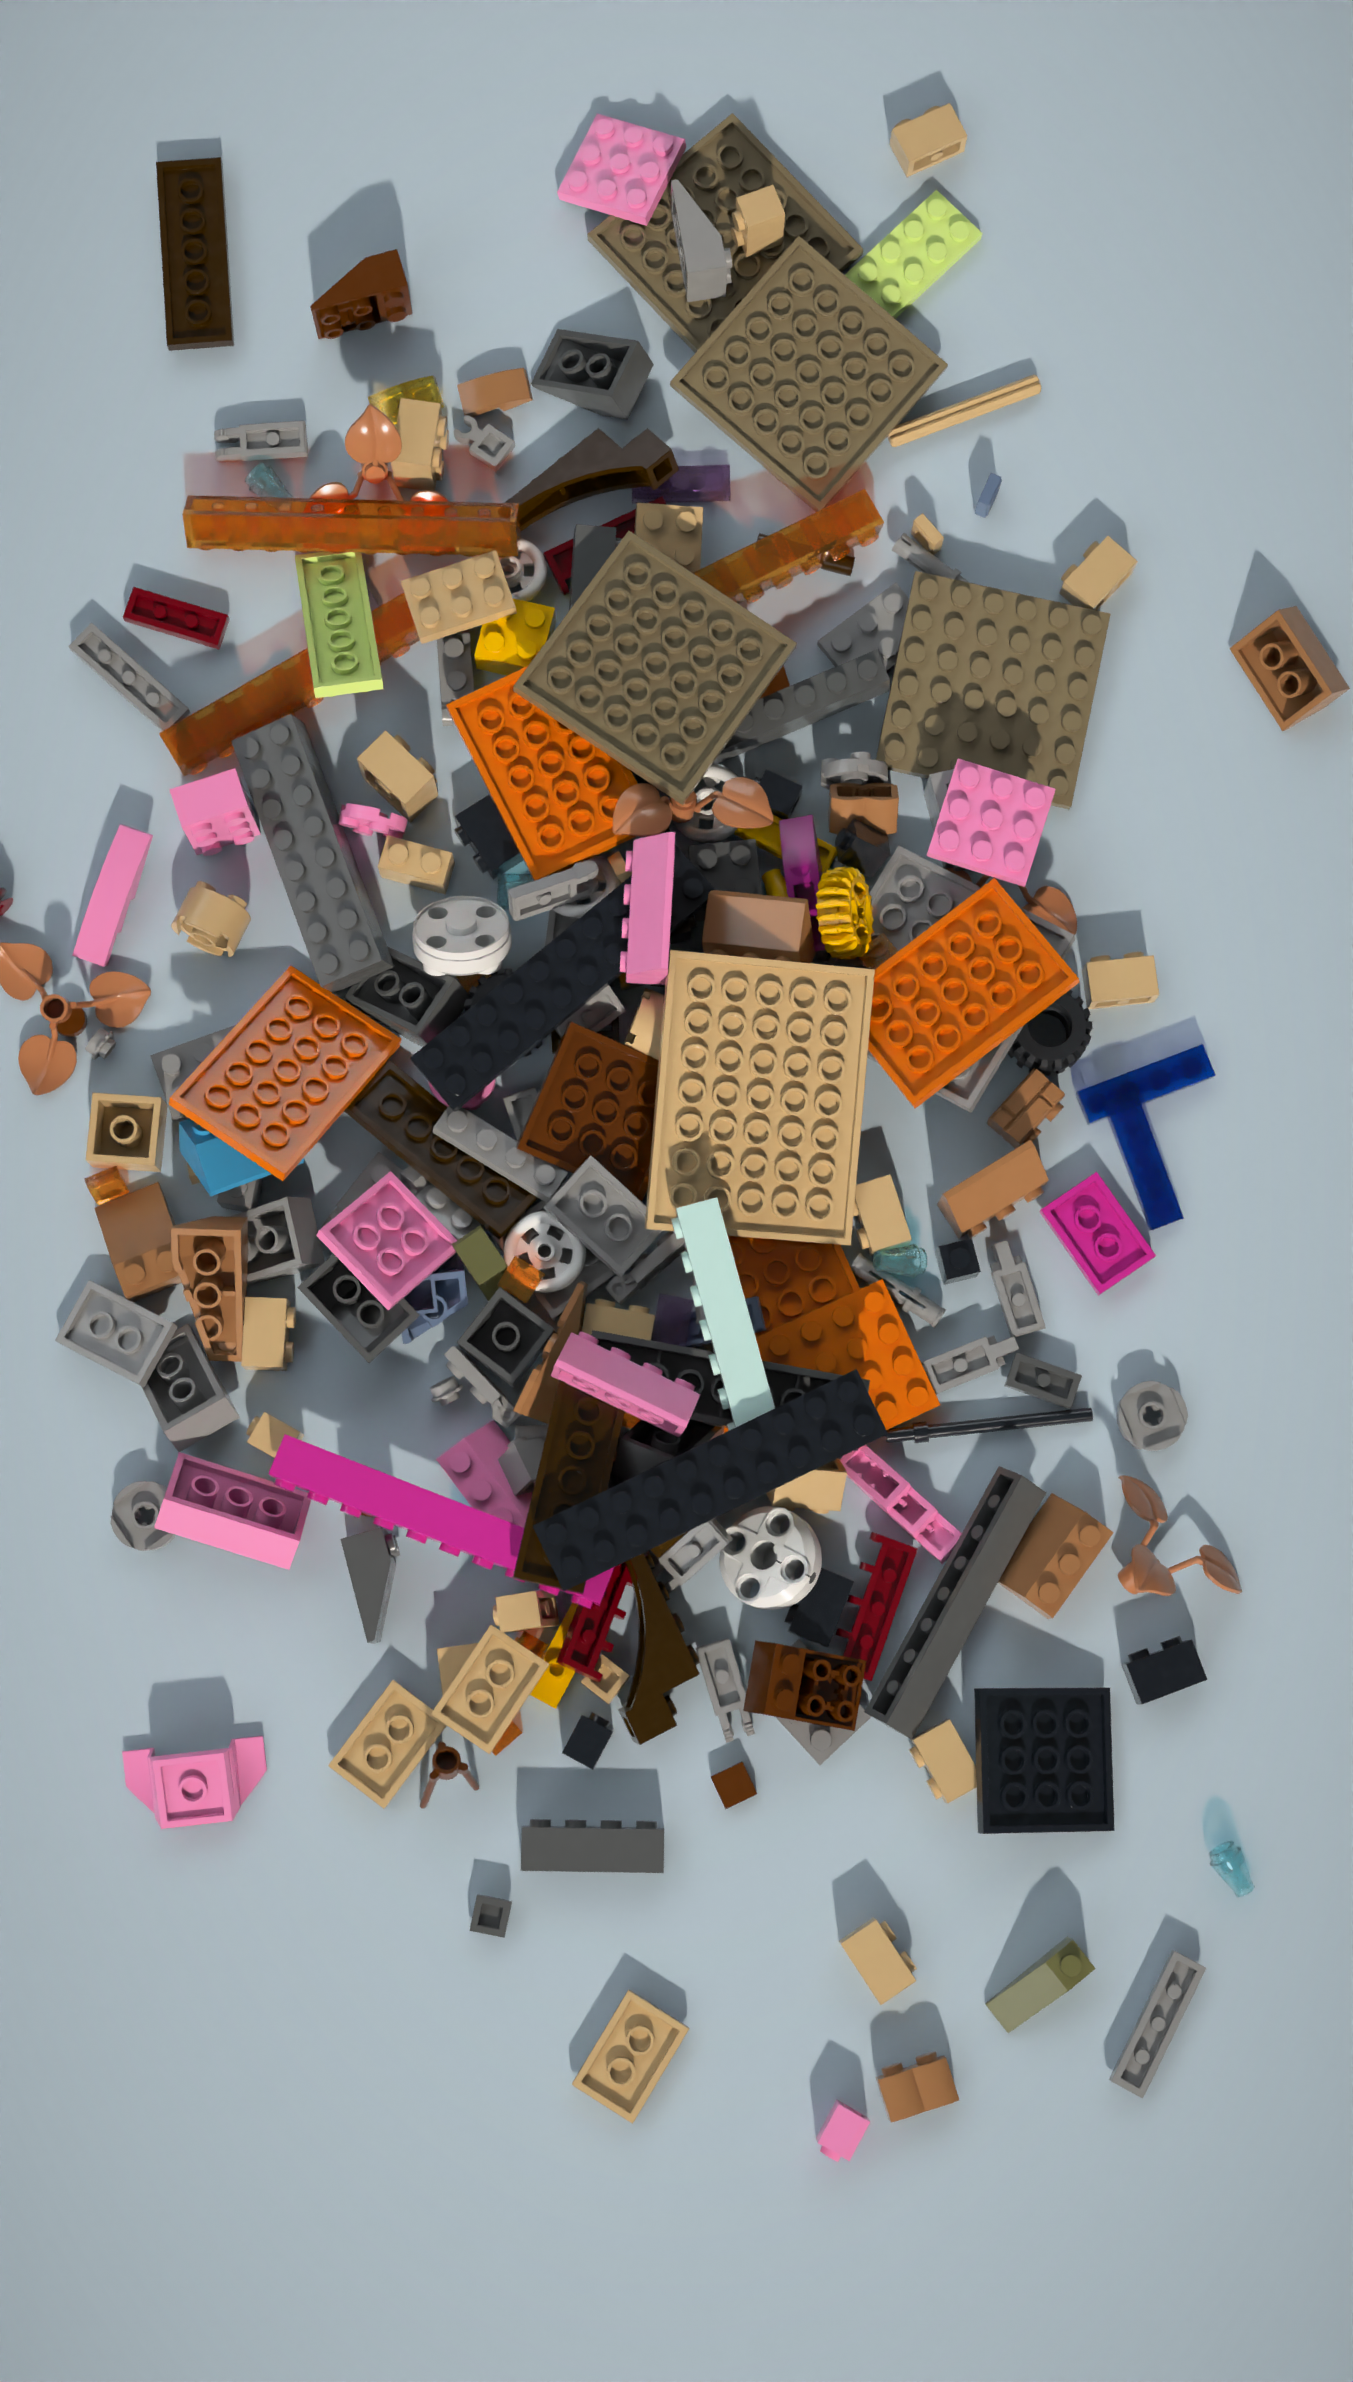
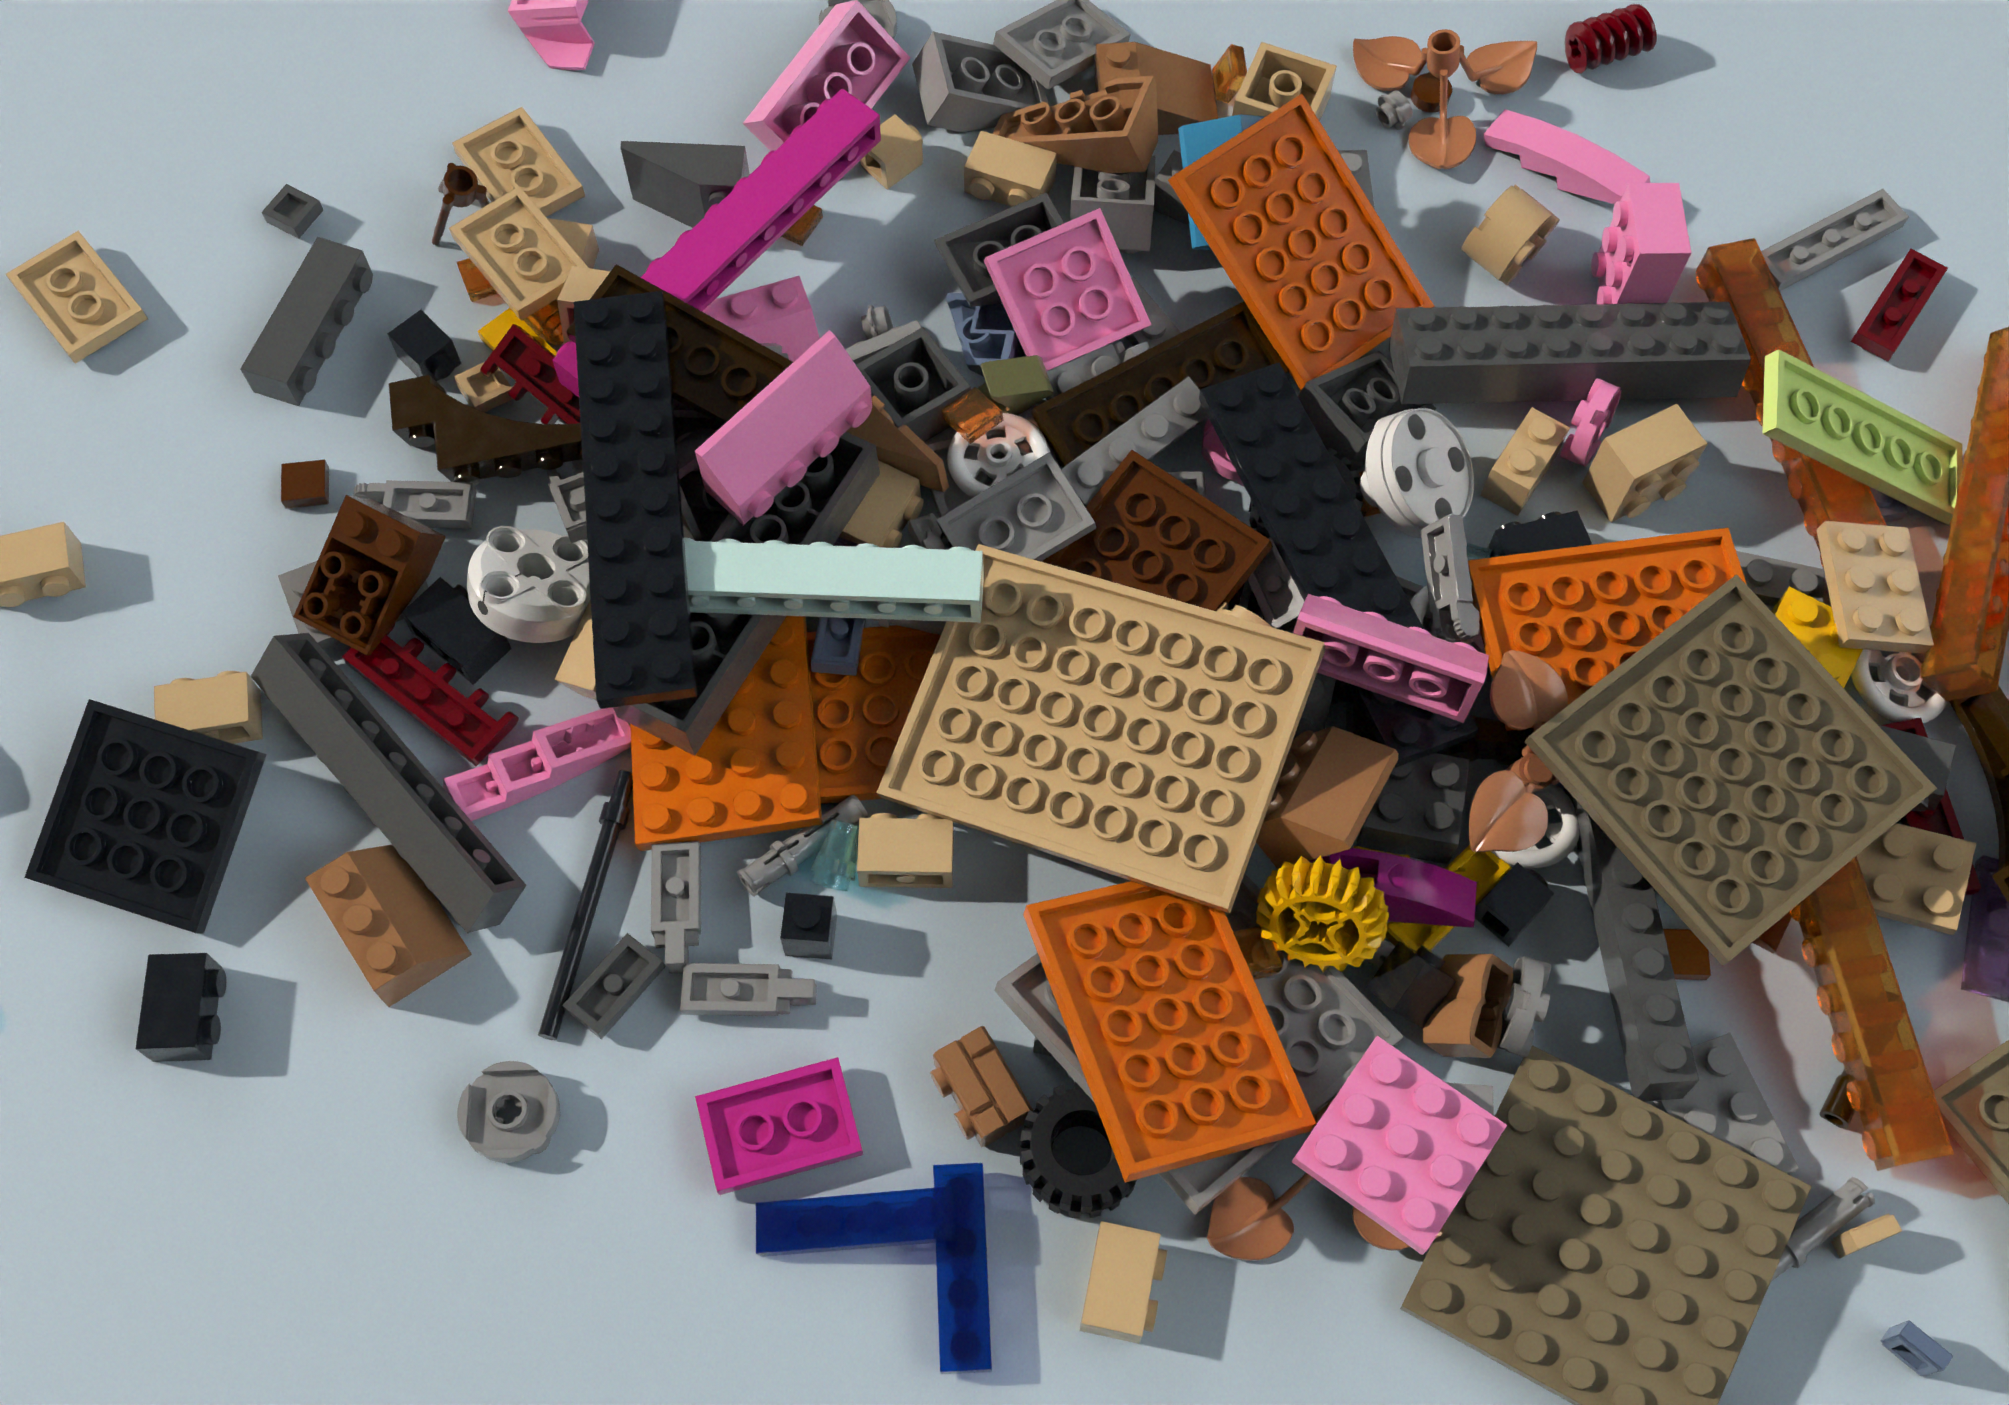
camera: 110 degrees right, 15 degrees down
(994, 1191) = (882, 1000): medium nougat slope -> none
(1145, 1571) = (290, 993): nougat plant -> none

